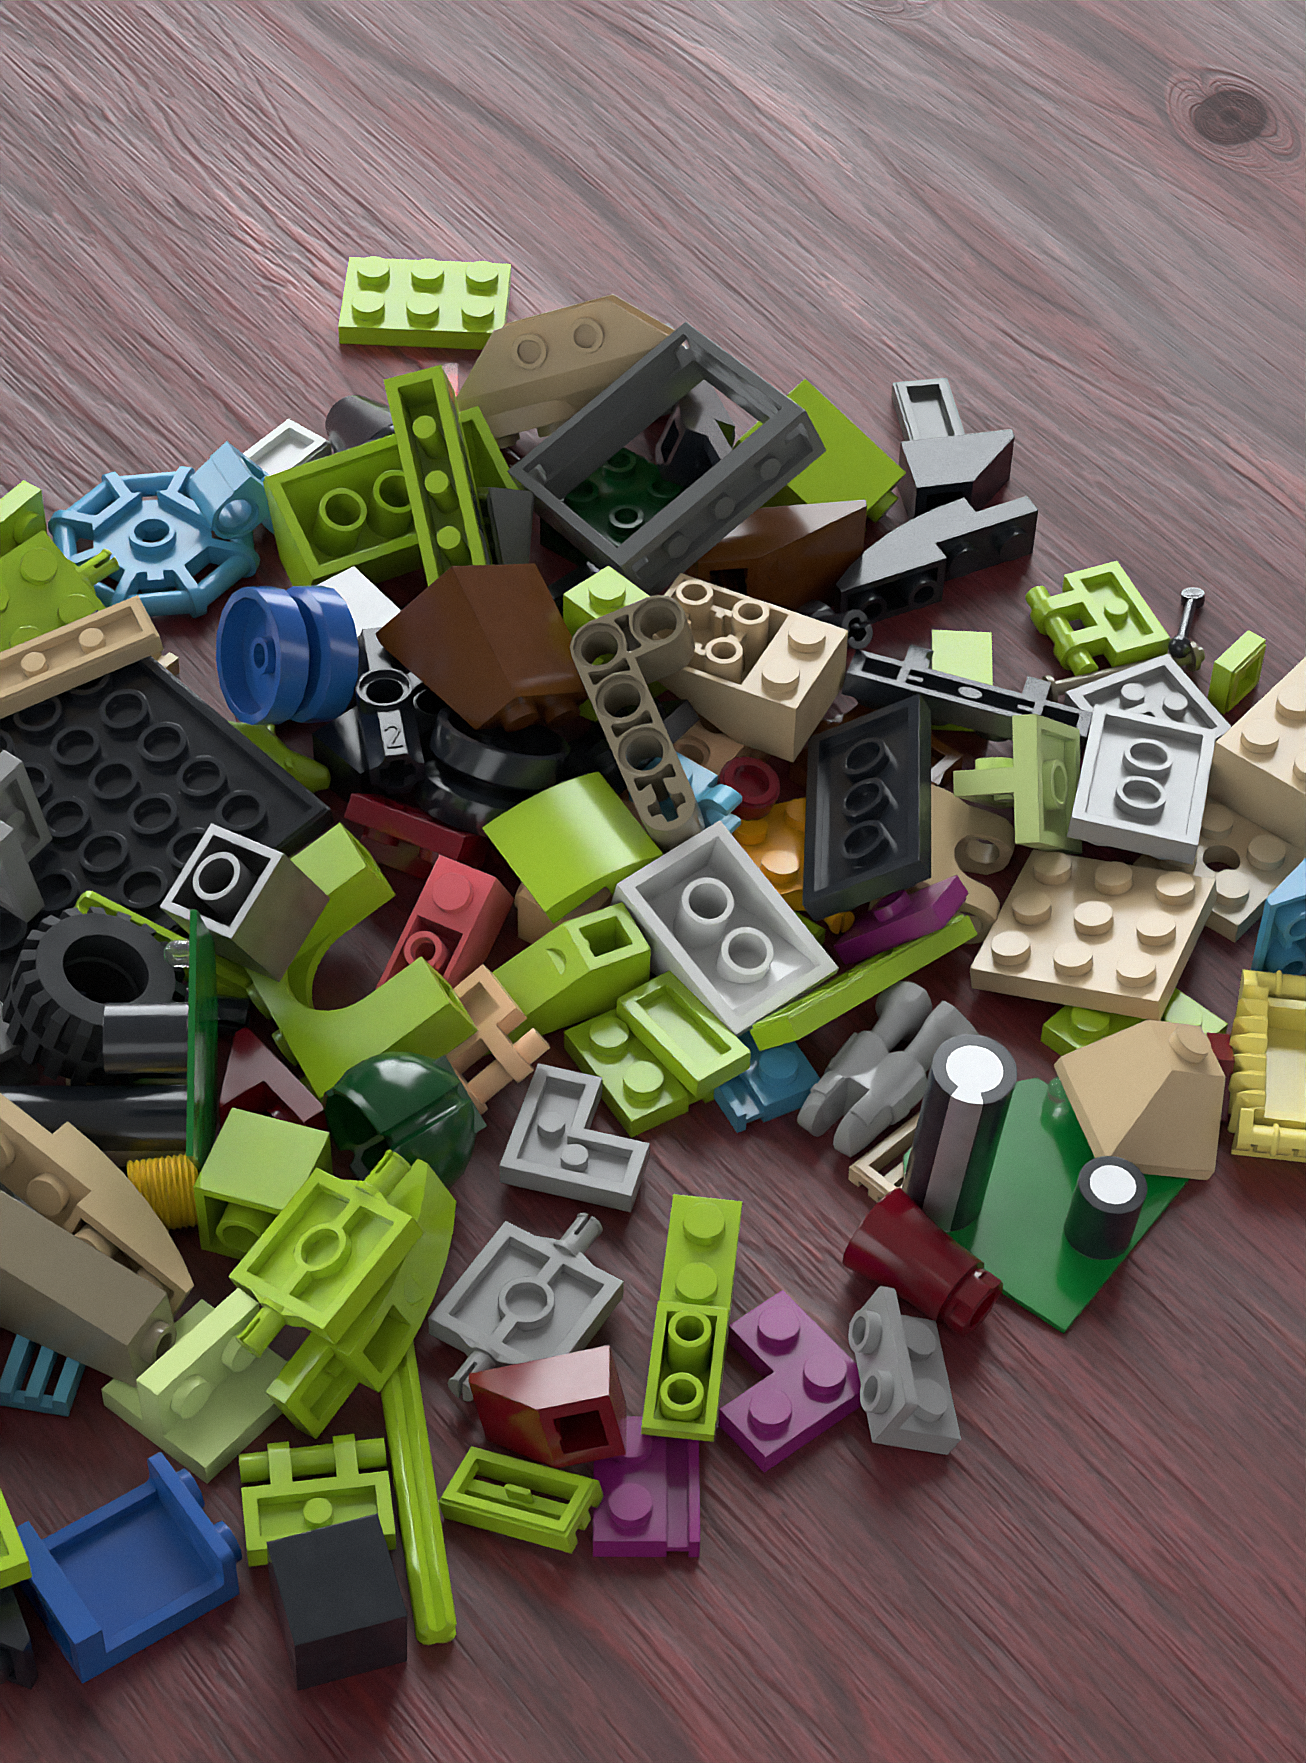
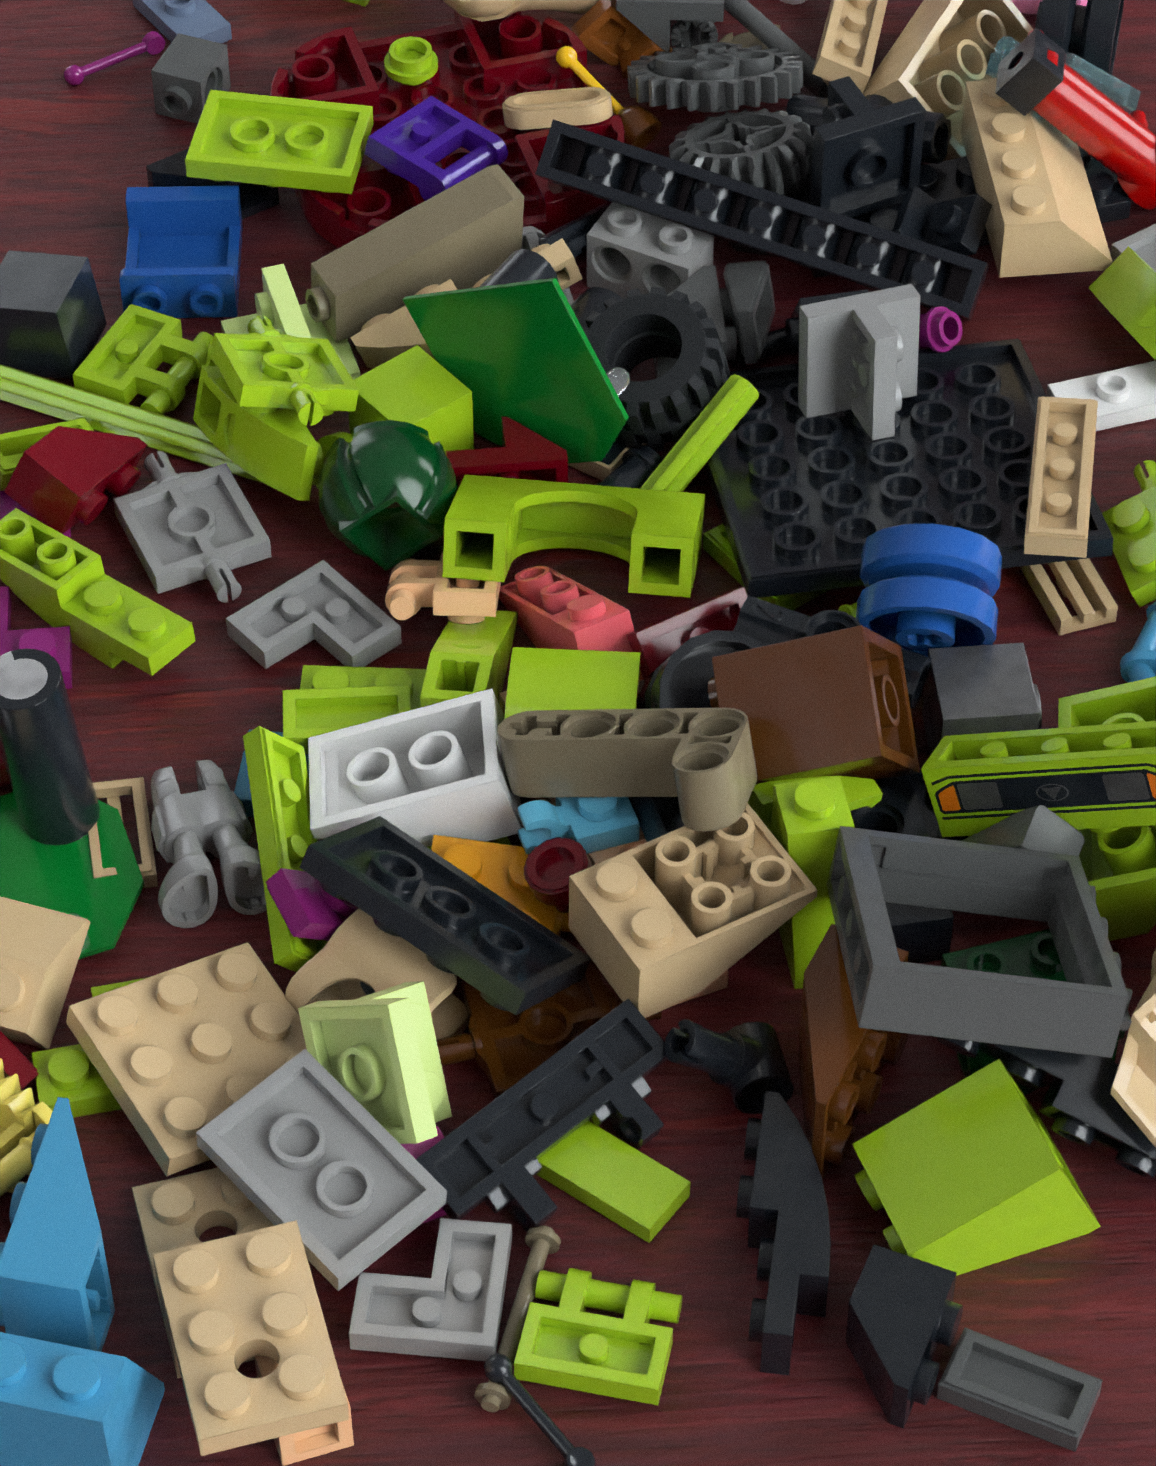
camera: 125 degrees right, 0 degrees up
(249, 900) = (657, 457): flat silver head -> none
(1236, 672) = (426, 1398): lime tile -> none

